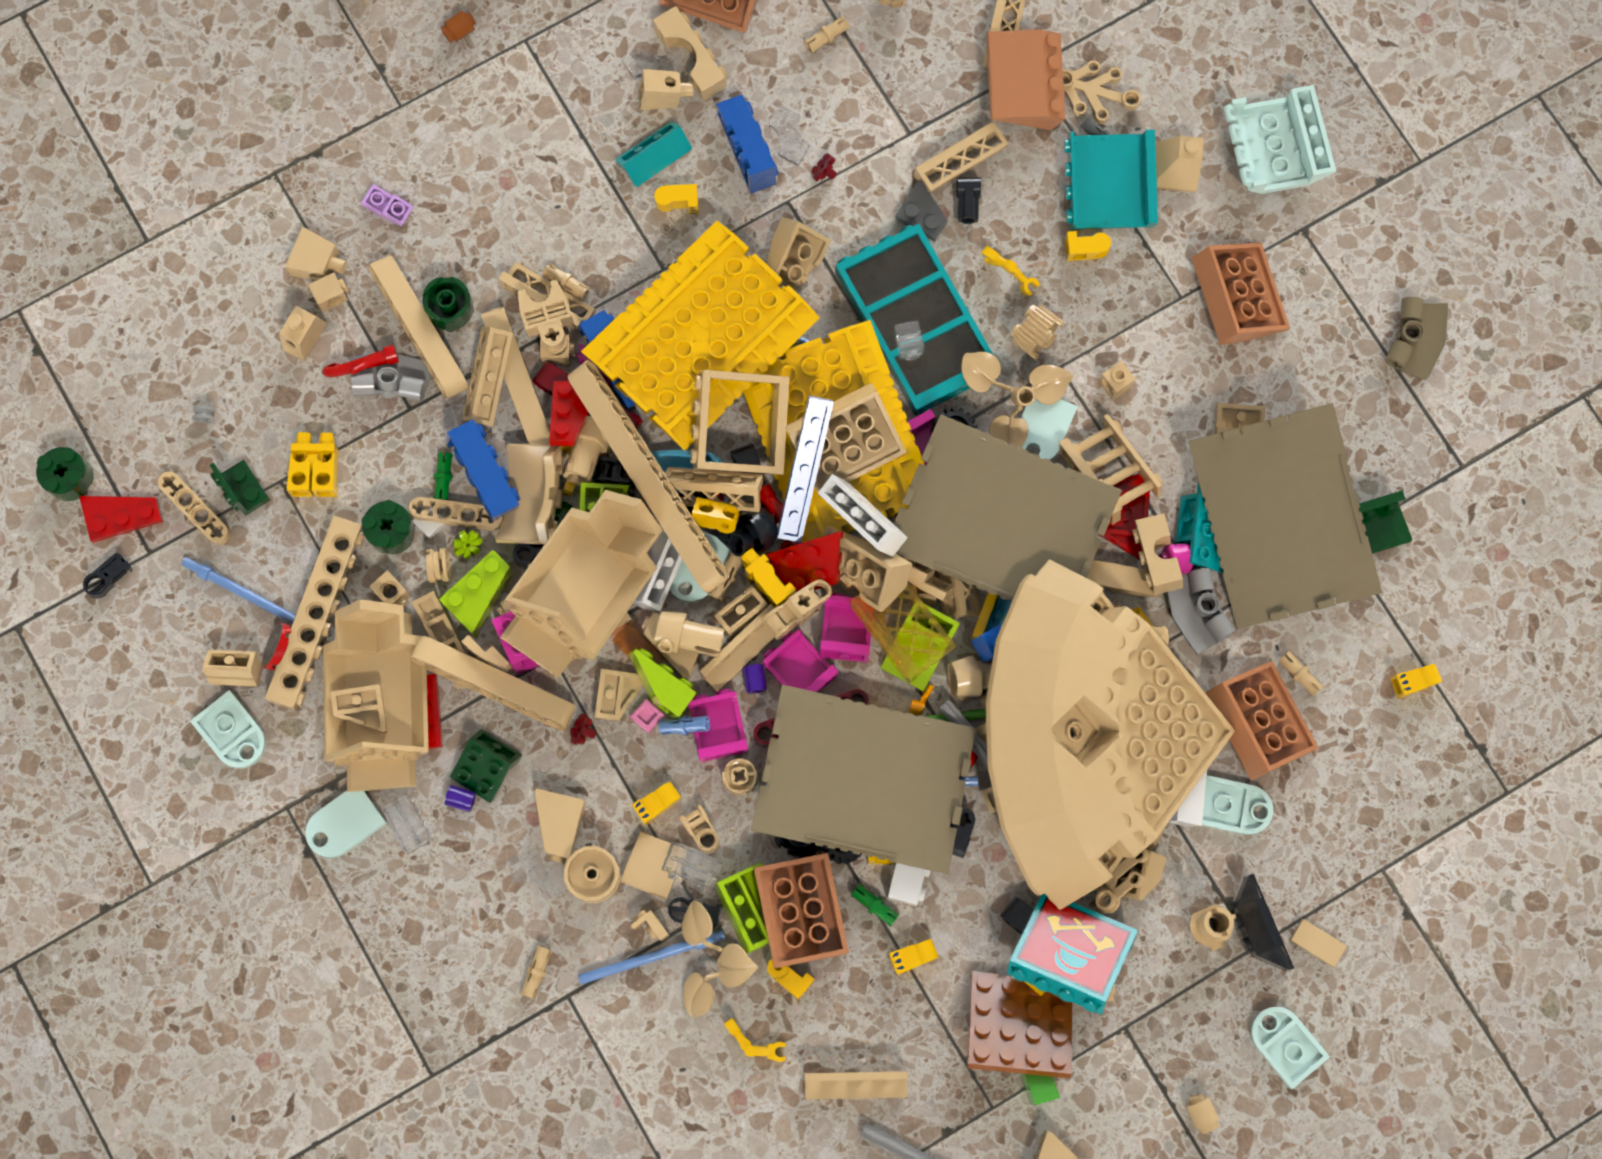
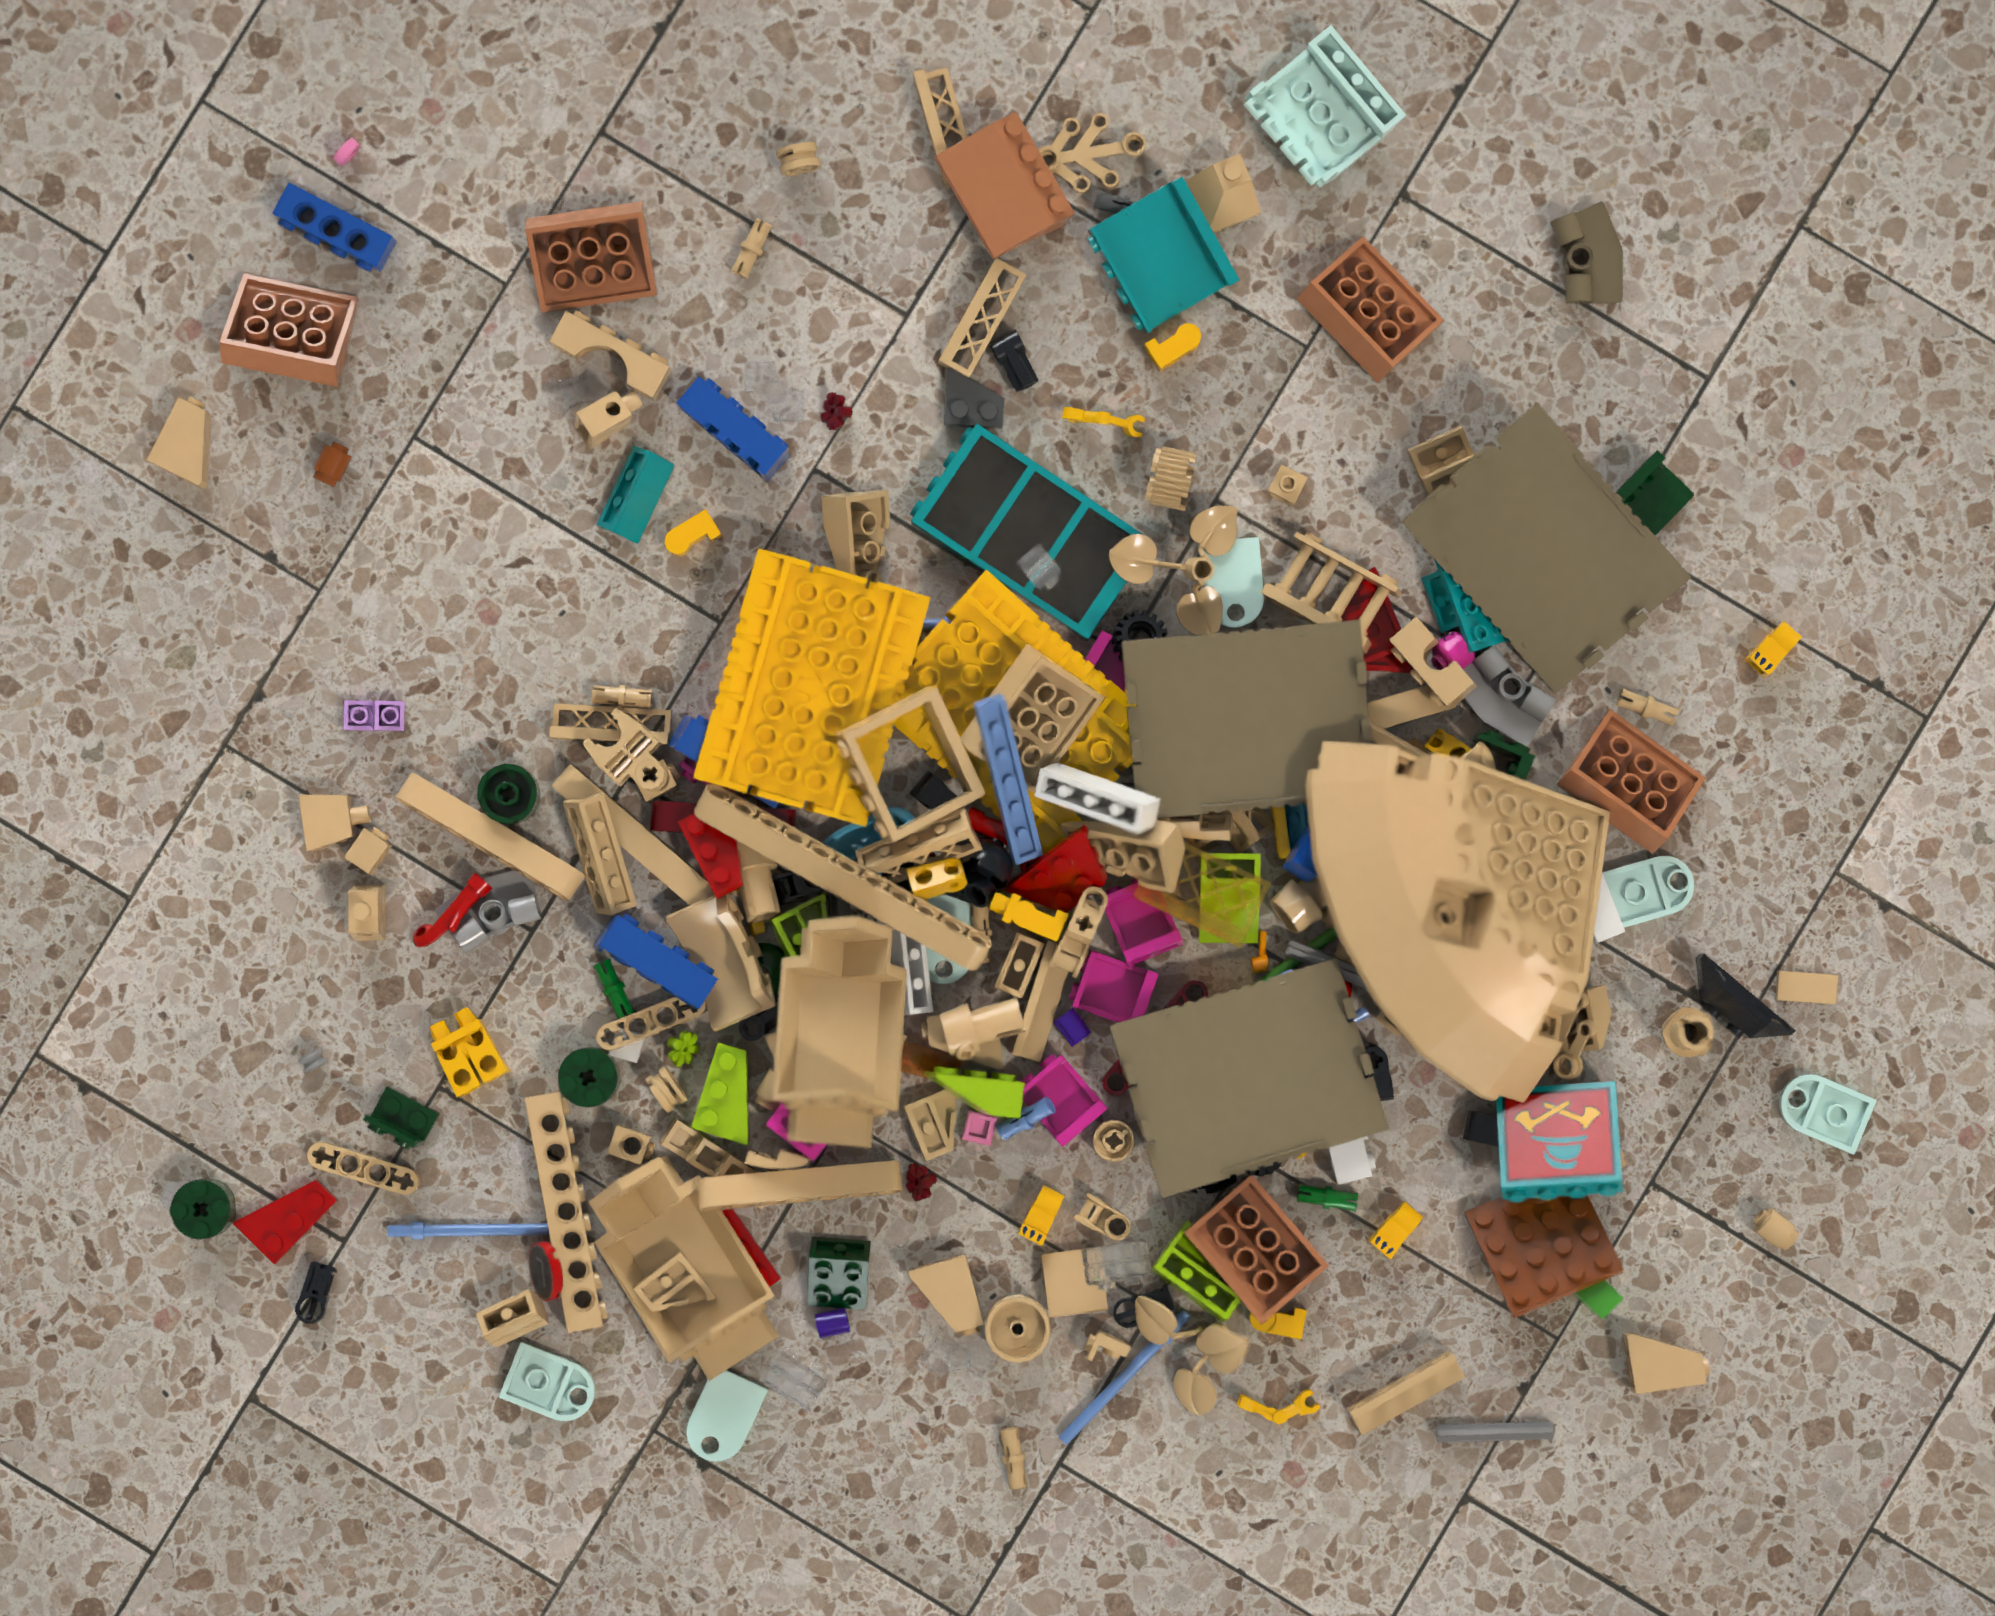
camera: 25 degrees left, 10 degrees up
(1186, 651) = (1516, 751): none -> dark green bracket

